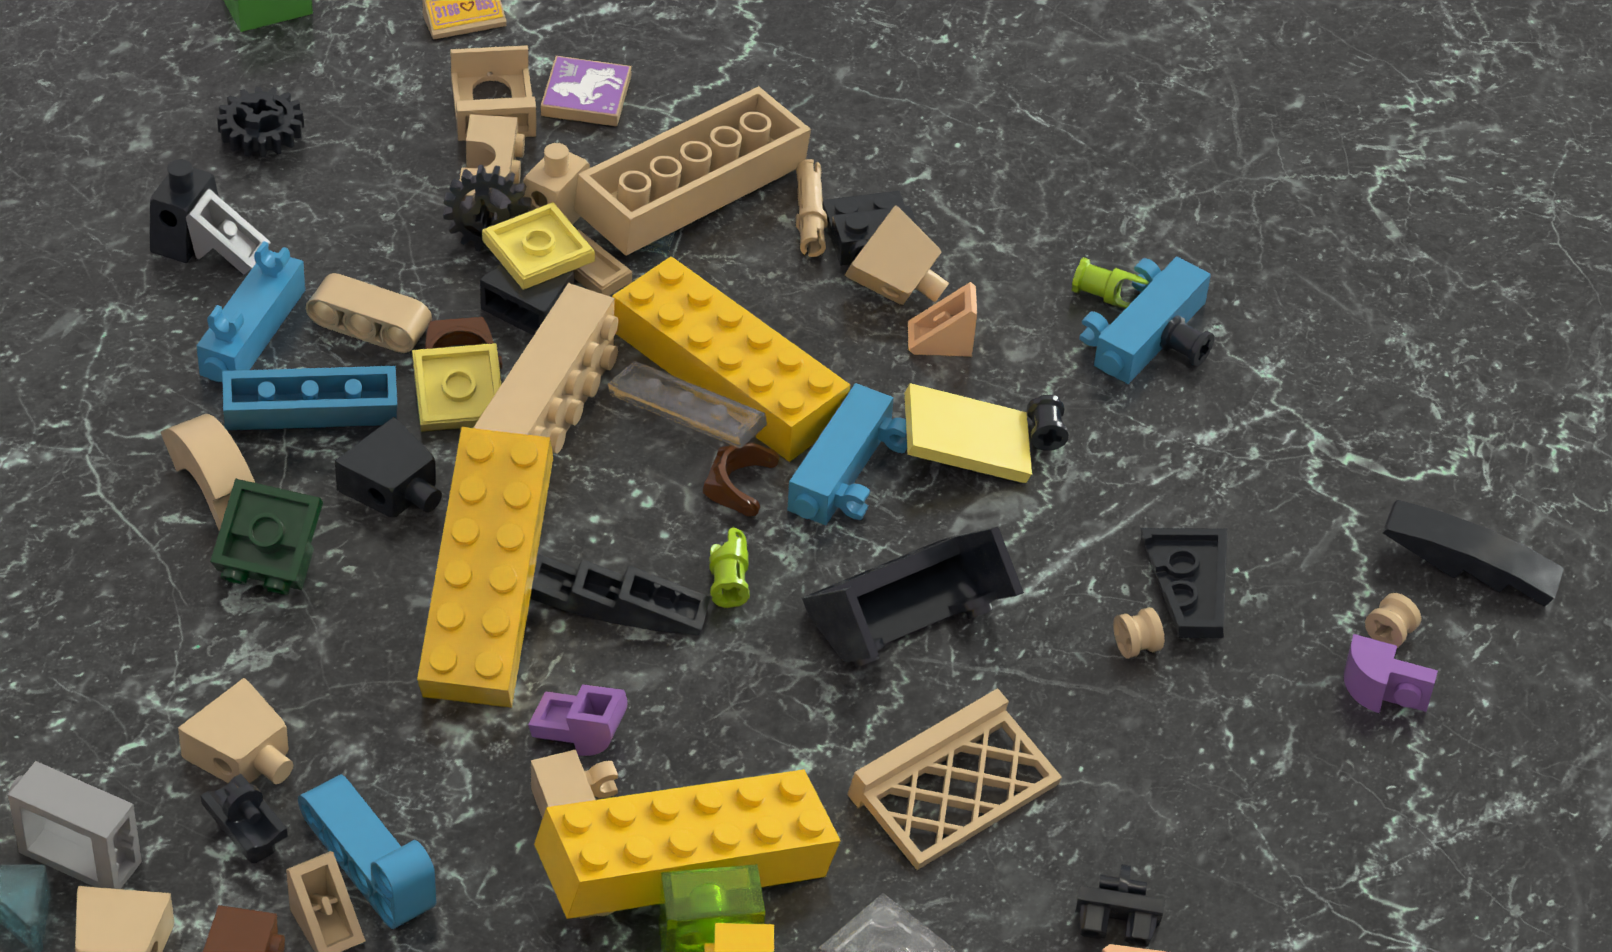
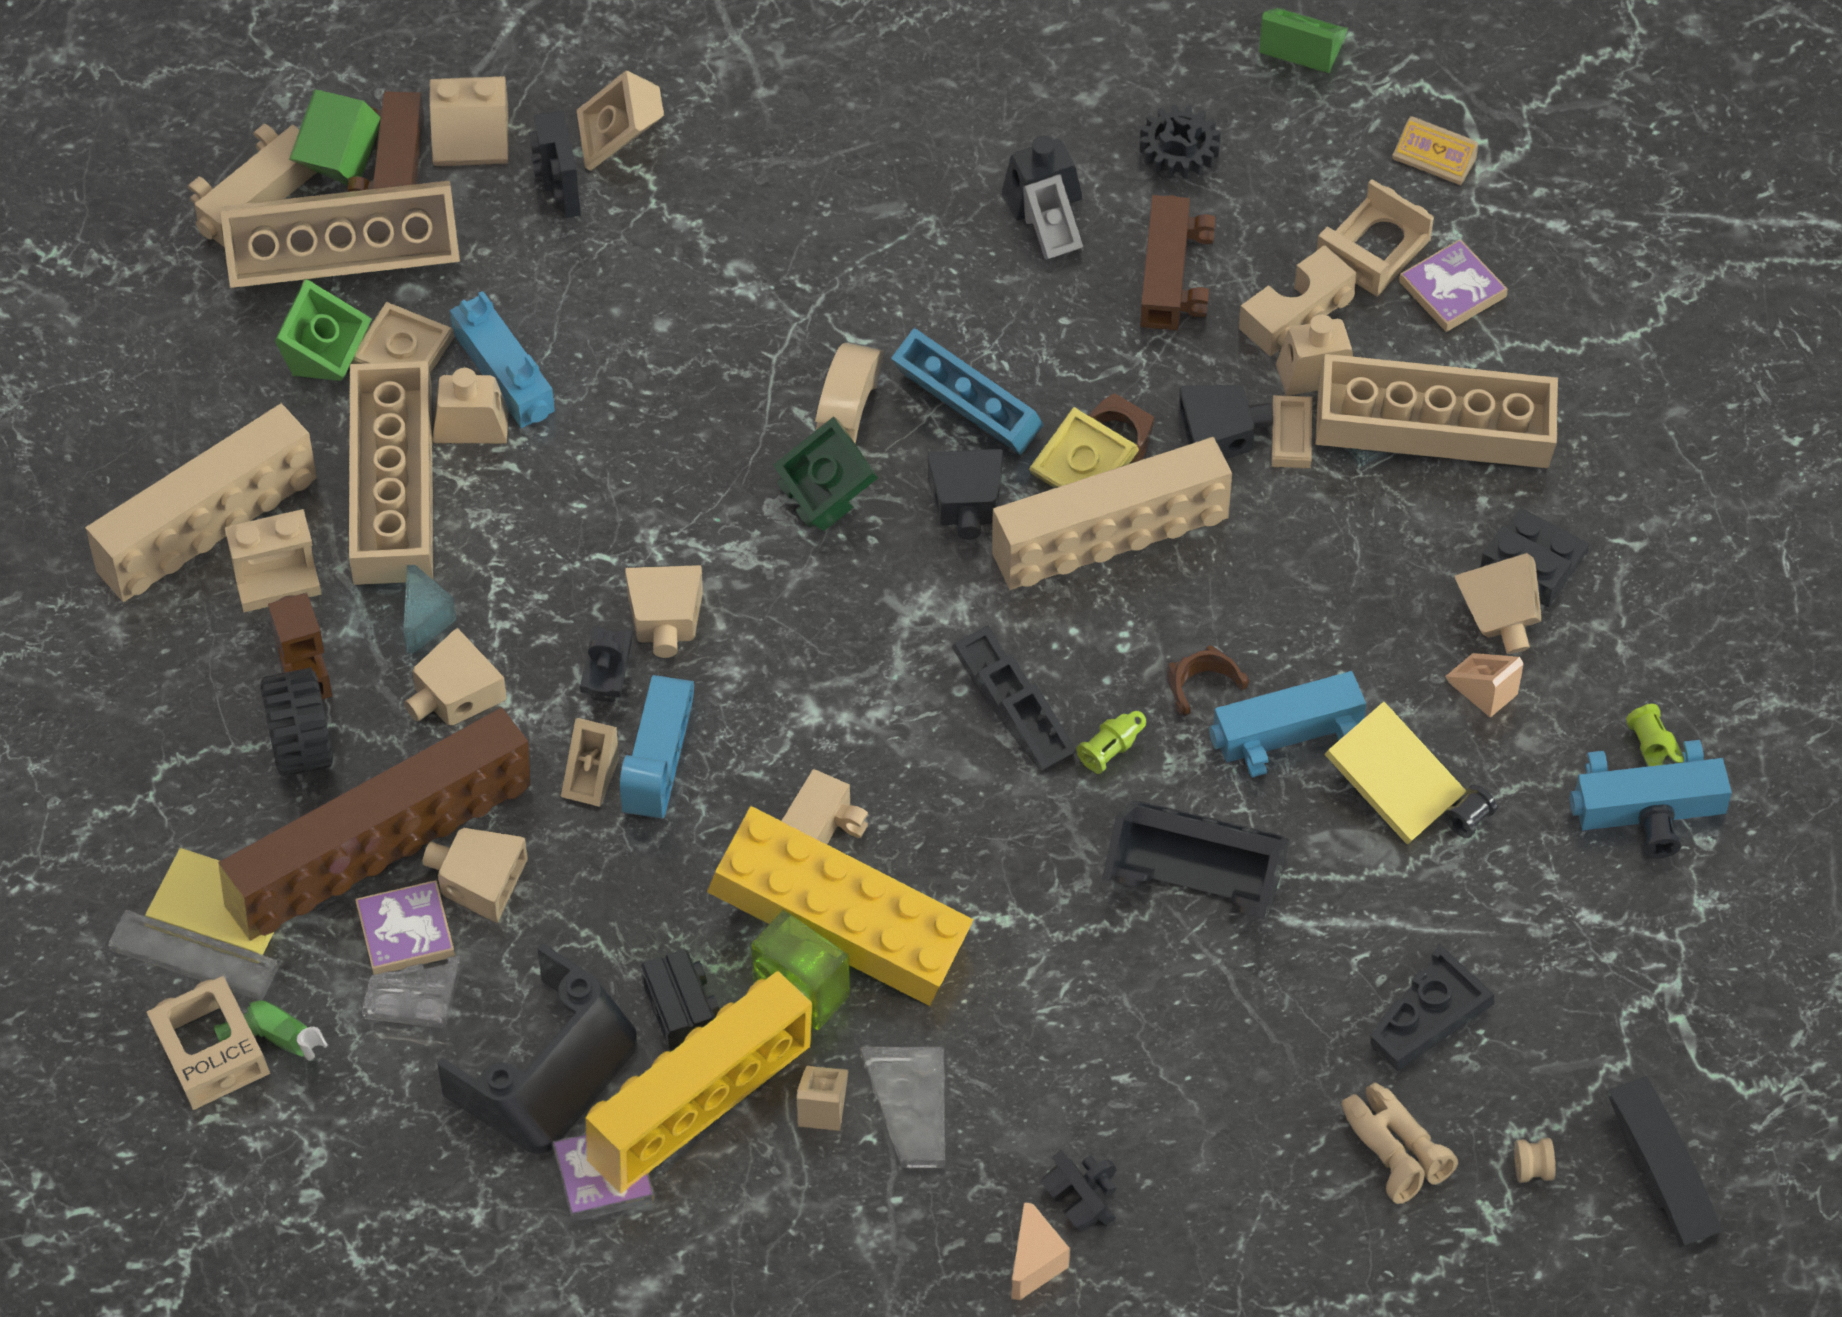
camera: 50 degrees right, 10 degrees up
(74, 827) = (495, 587): light grey window -> none
(252, 314) = (1001, 297): dark azure brick -> none
(355, 211) = (1165, 263): none -> reddish brown brick
(368, 313) = (1086, 354): tan beam -> none
(485, 567) = (924, 608): yellow brick -> none
(499, 196) = (1247, 332): black gear -> none
(538, 245) = (1246, 390): light yellow tile -> none
(582, 719) = (885, 765): medium lavender brick -> none
(687, 404) = (1223, 594): clear tile -> none
(729, 351) = (1294, 578): yellow brick -> none
(811, 215) = (1494, 515): tan pin -> none
(927, 752) = (1084, 977): tan fence -> none
(1138, 632) = (1337, 1016): tan wheel -> none
(1285, 682) = (1407, 1175): none -> tan piece
(1376, 676) = (1471, 1189): medium lavender brick -> none

